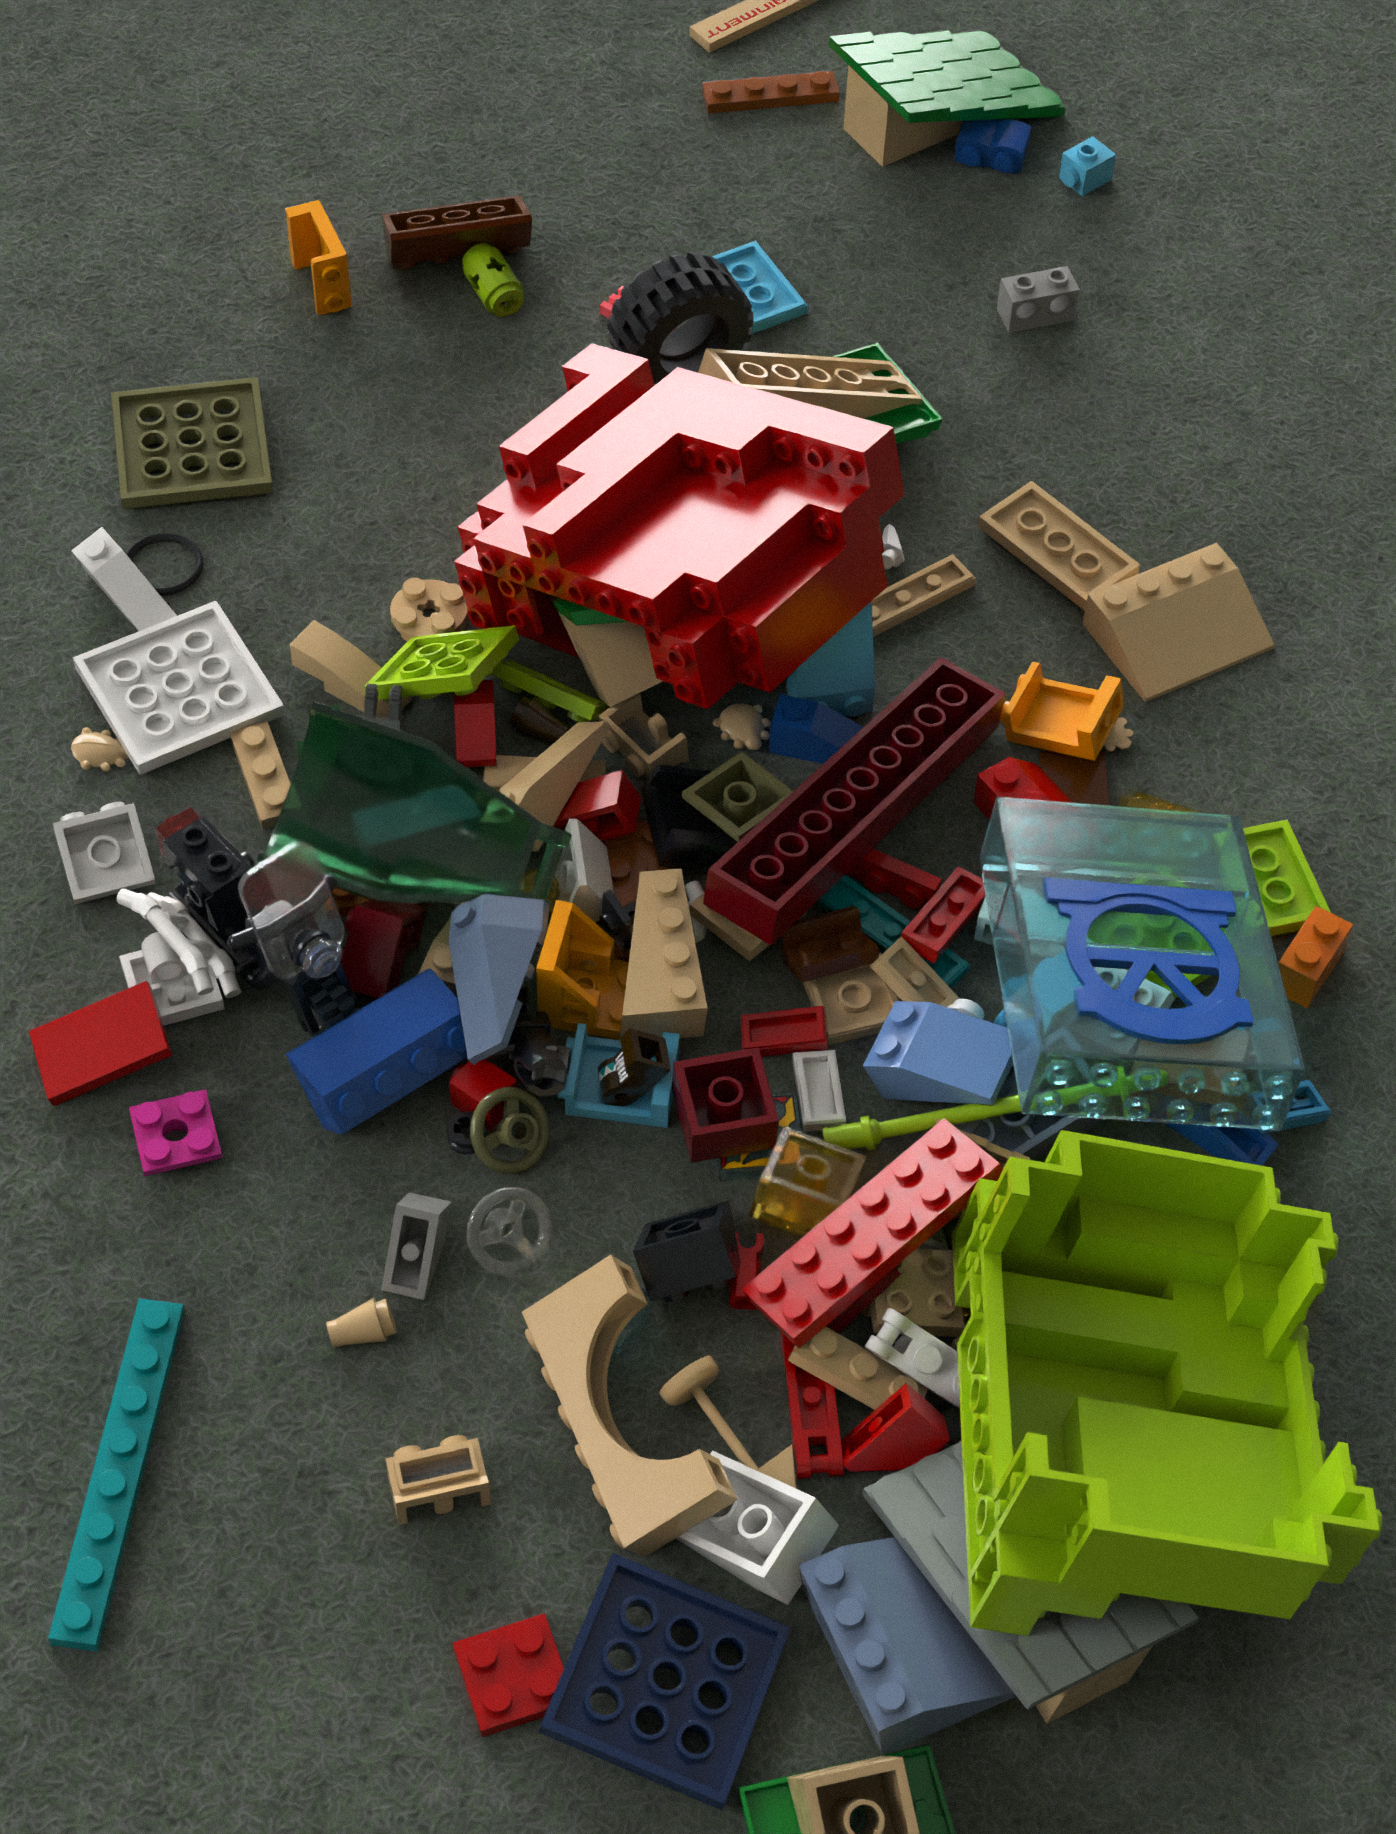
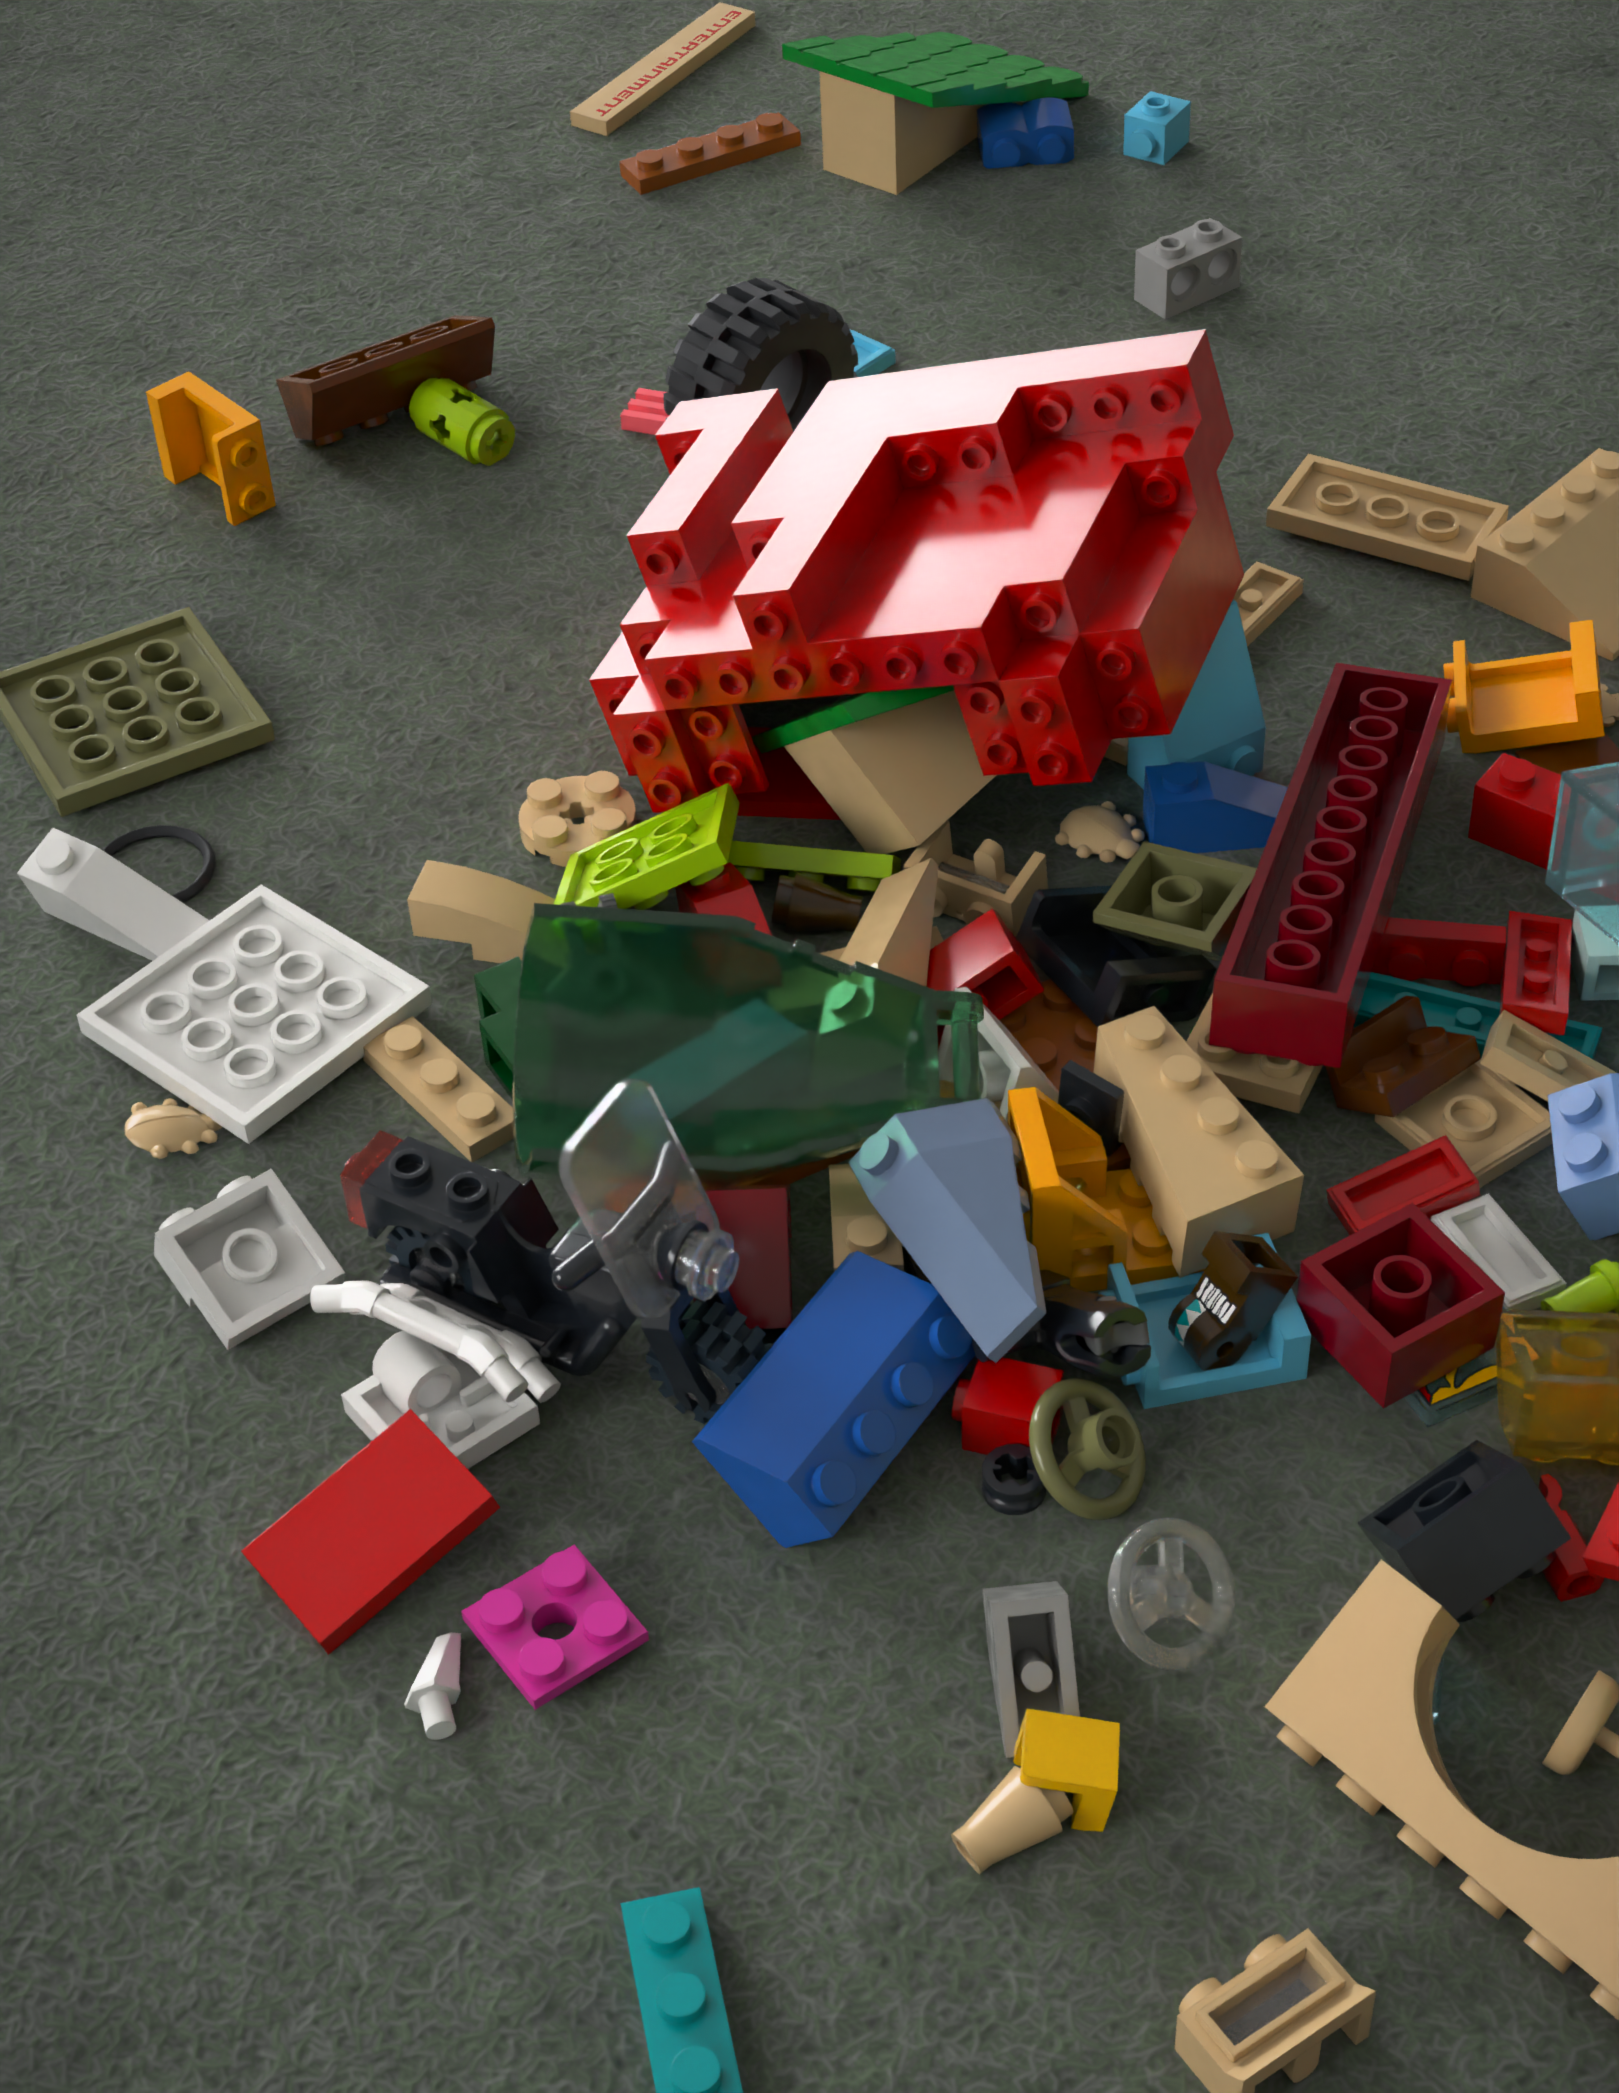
camera: 15 degrees left, 10 degrees down
(100, 1144) = (438, 1687): none -> white bar
(405, 1305) = (1071, 1757): none -> yellow panel

